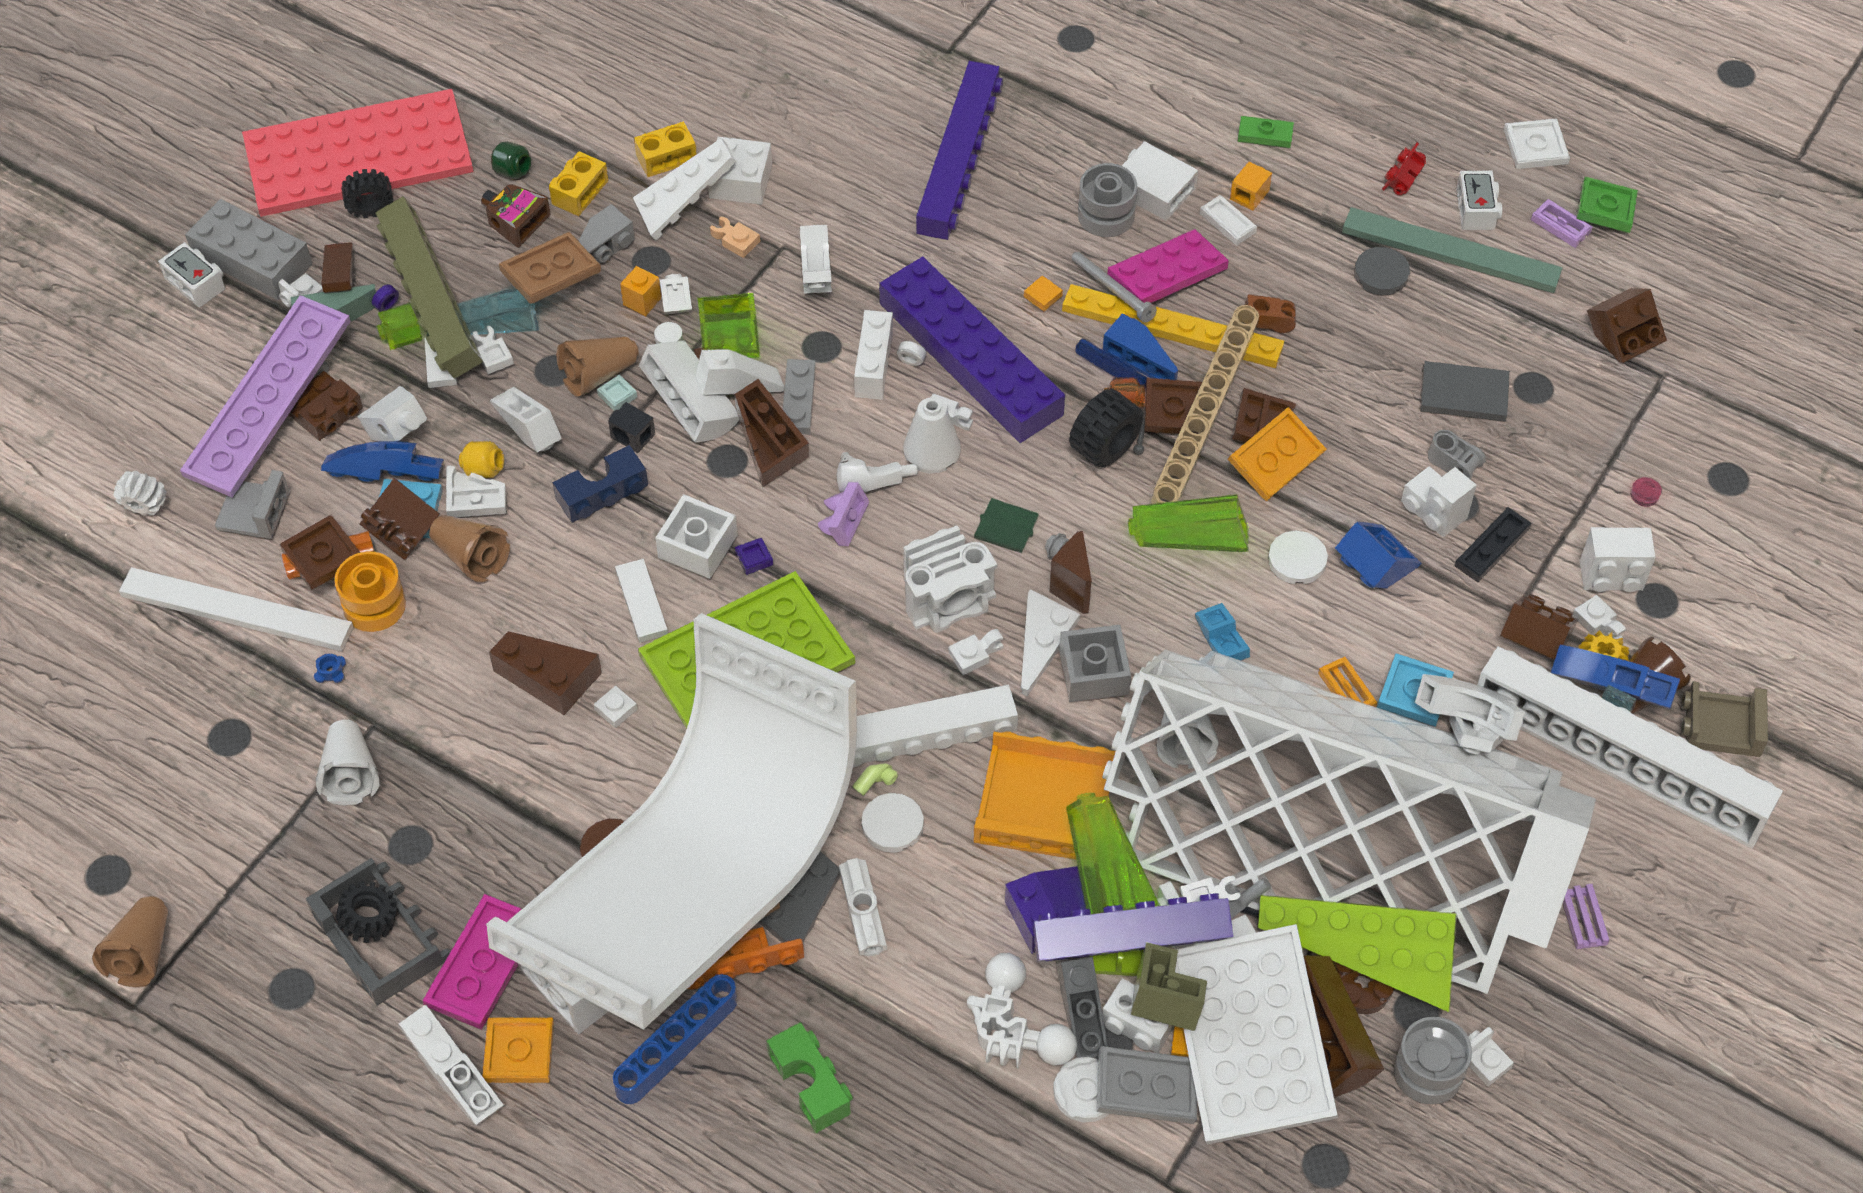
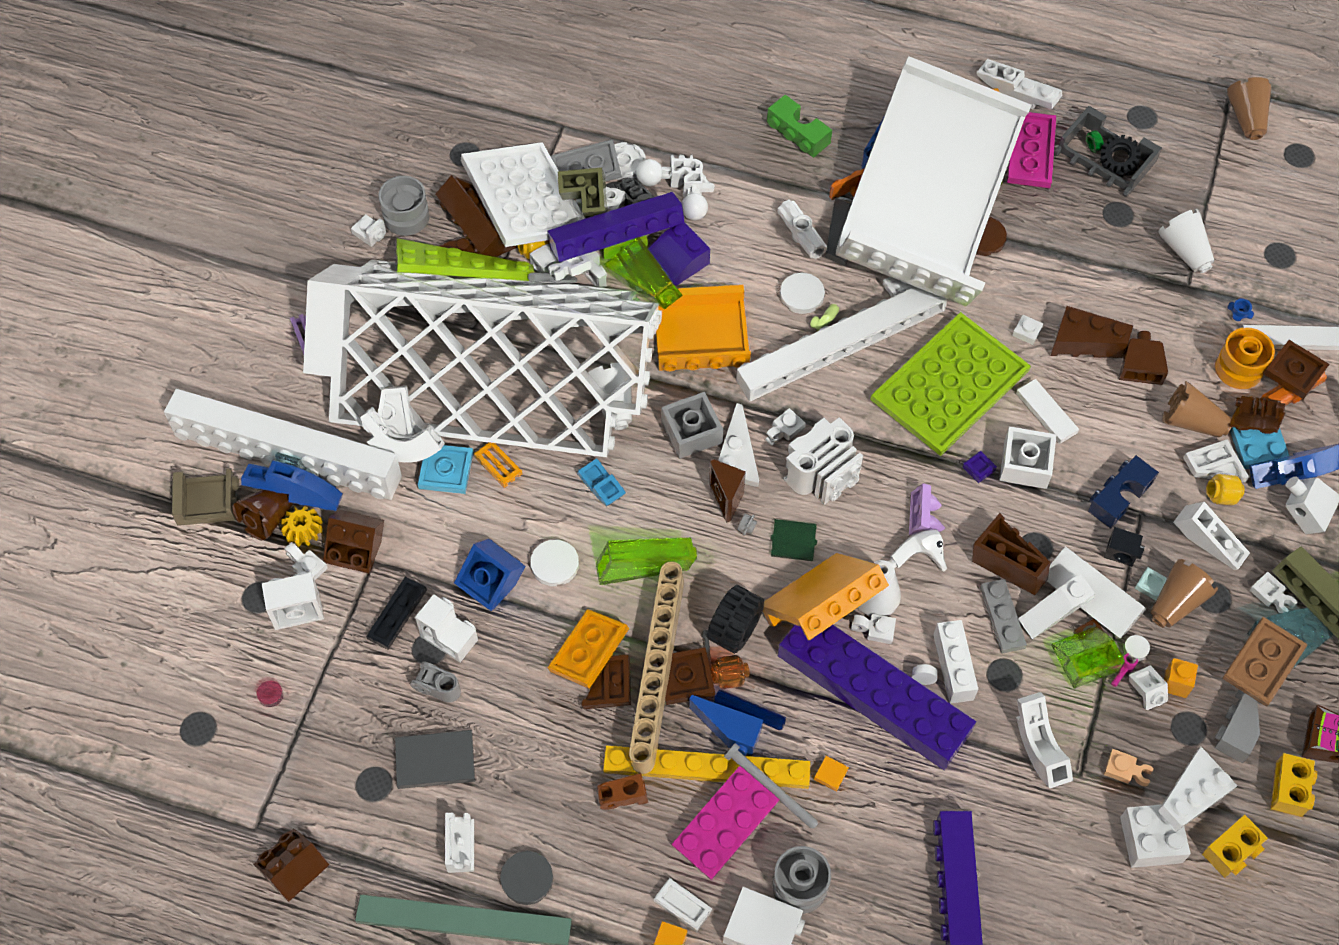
camera: 165 degrees right, 5 degrees up
(388, 948) = (1094, 141): none -> green tile
(488, 622) = (1144, 360): none -> reddish brown torso
(686, 321) = (1126, 668): none -> dark pink hand
(1004, 416) = (825, 594): none -> light orange panel
(1448, 308) = (459, 843): none -> white hinge

